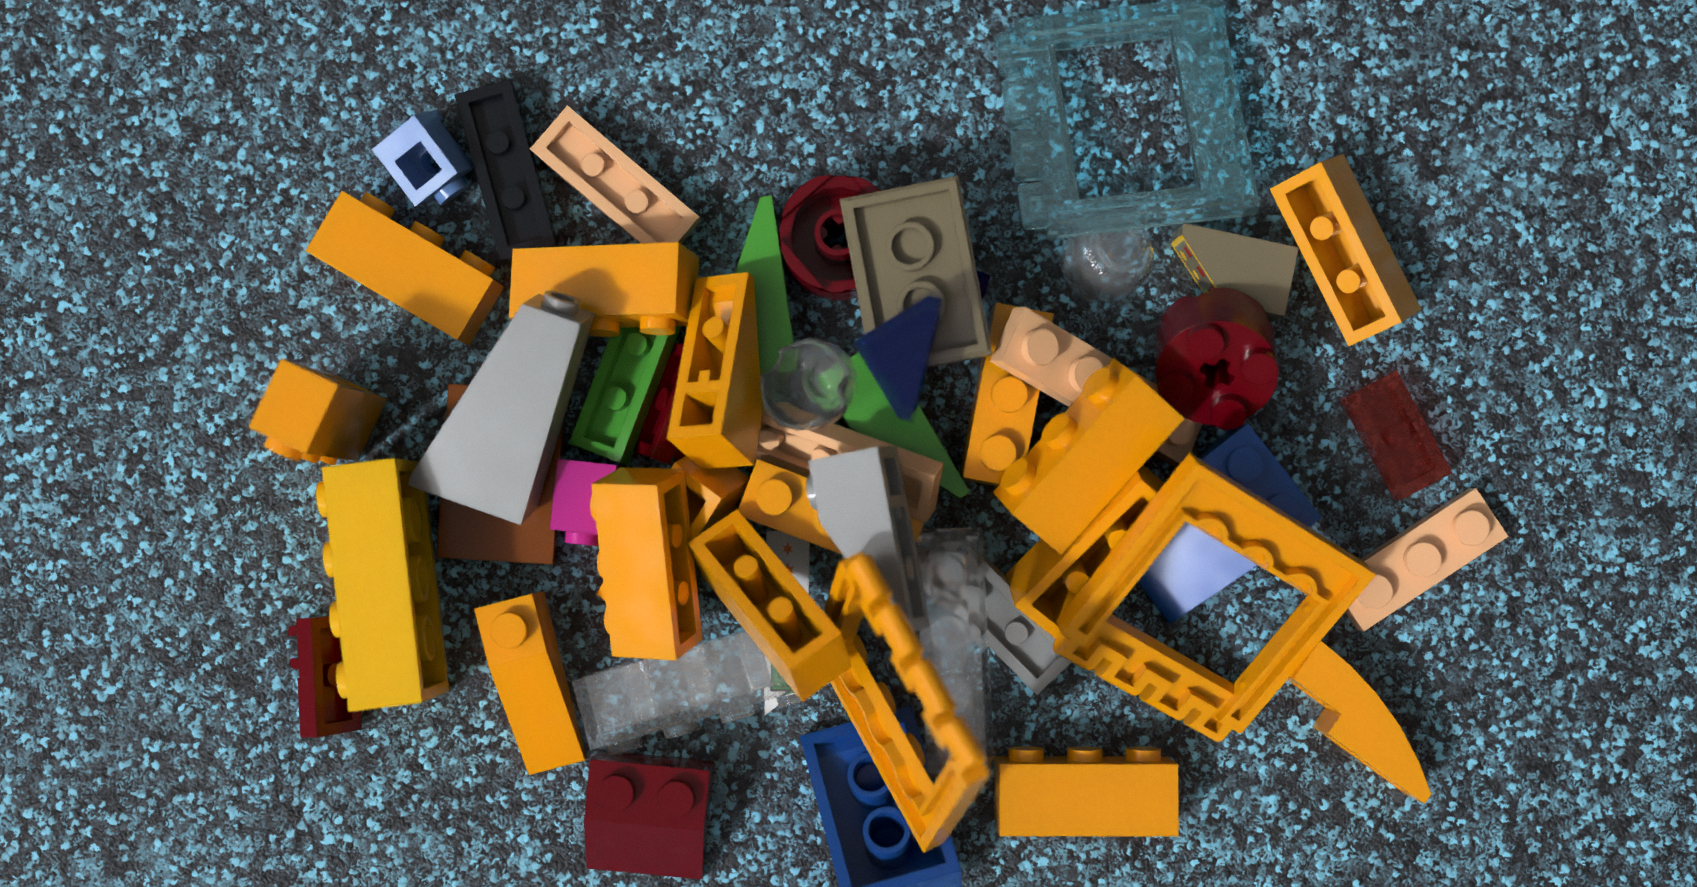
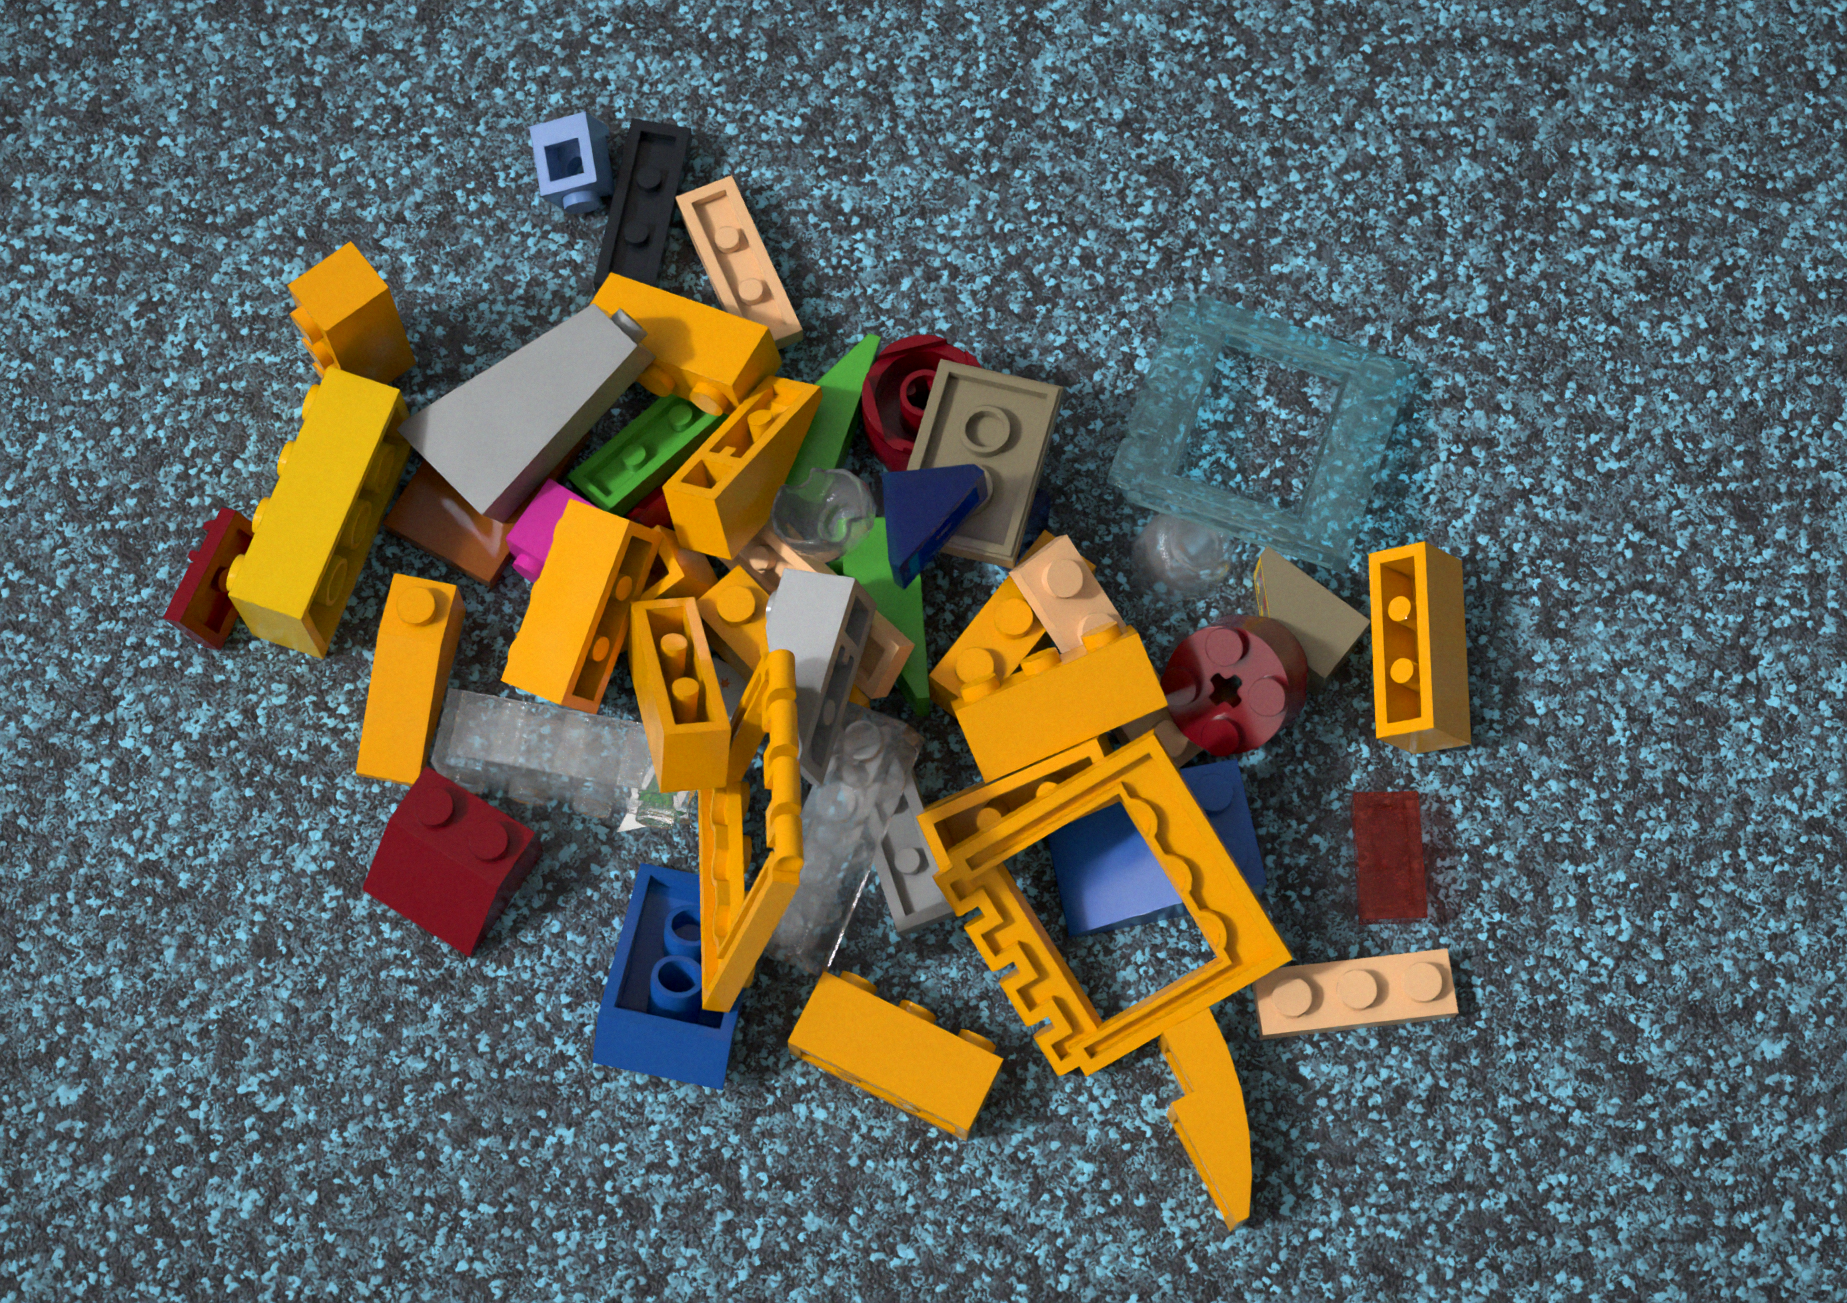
camera: 30 degrees right, 15 degrees down
(407, 265) = (503, 247): light orange brick -> none

